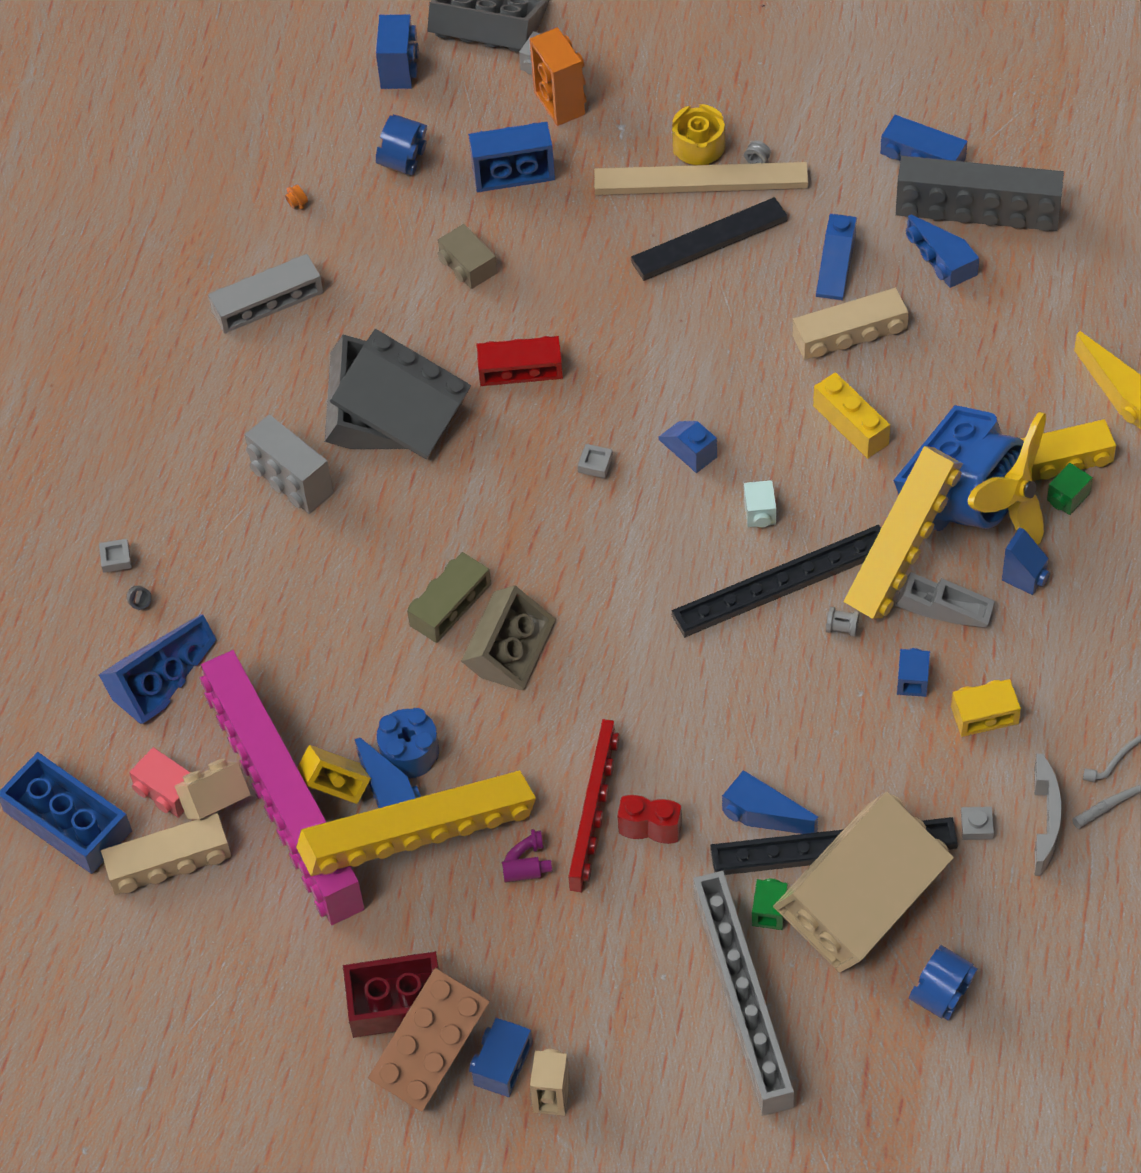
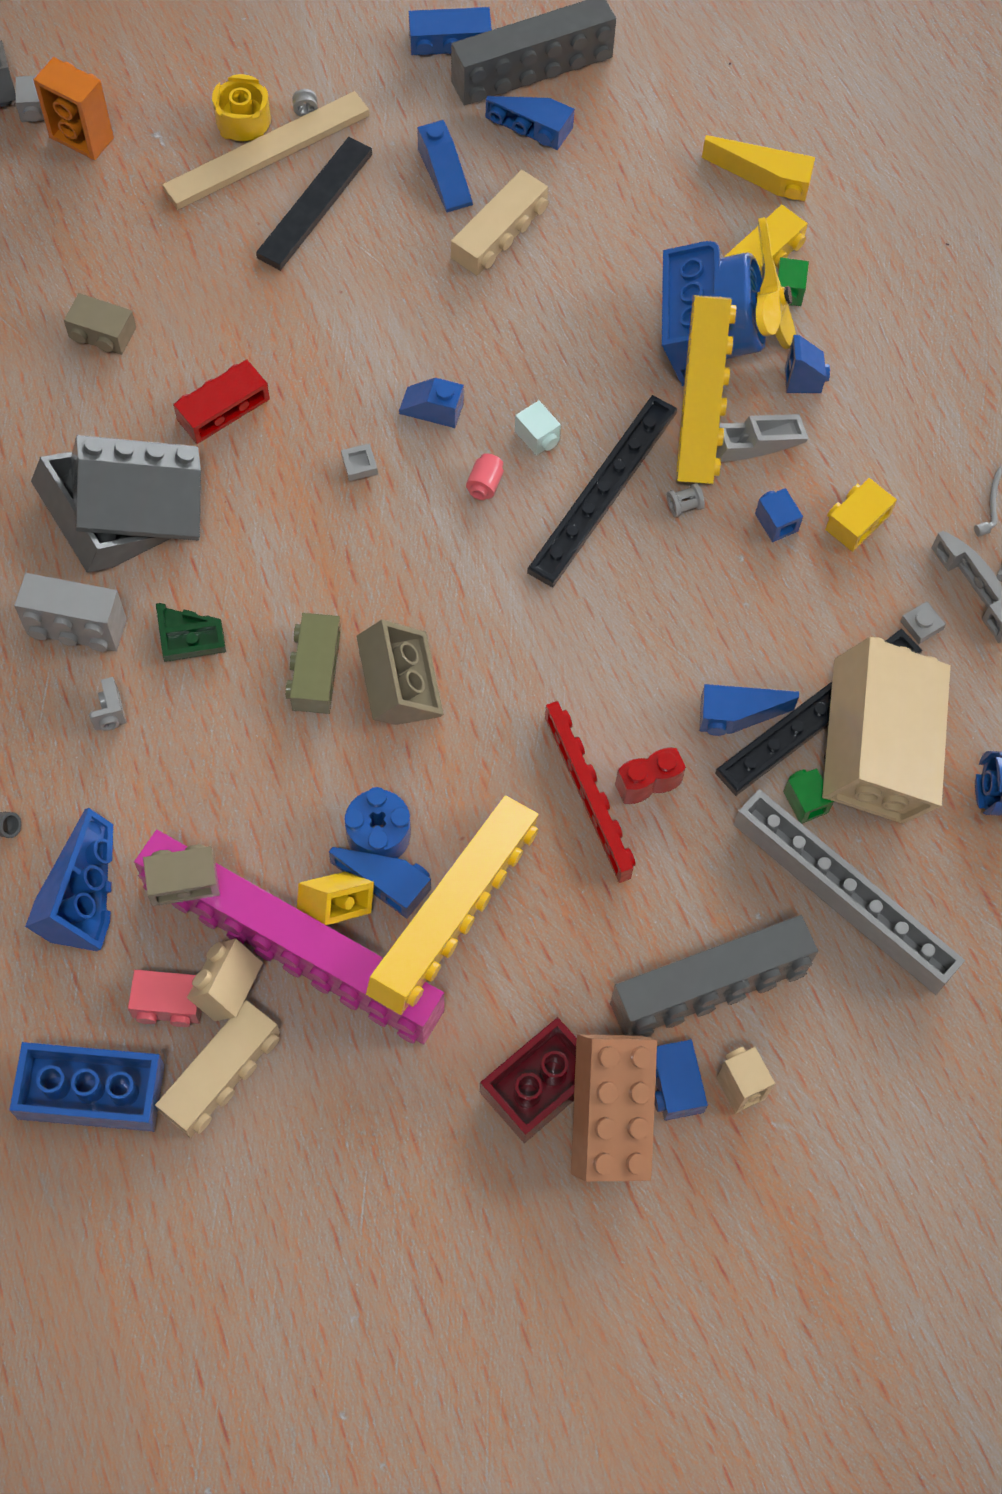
camera: 40 degrees left, 10 degrees up
(223, 689) = (181, 875): none -> dark tan brick
(274, 551) = (112, 709): none -> light grey bracket
(368, 526) = (188, 634): none -> dark green wing
(512, 156) = (80, 206): blue brick -> none
(527, 868) = (570, 885): magenta plant -> none
(582, 994) = (714, 977): none -> dark grey brick
(687, 521) = (485, 476): none -> coral brick
(851, 415) = (561, 305): yellow brick -> none

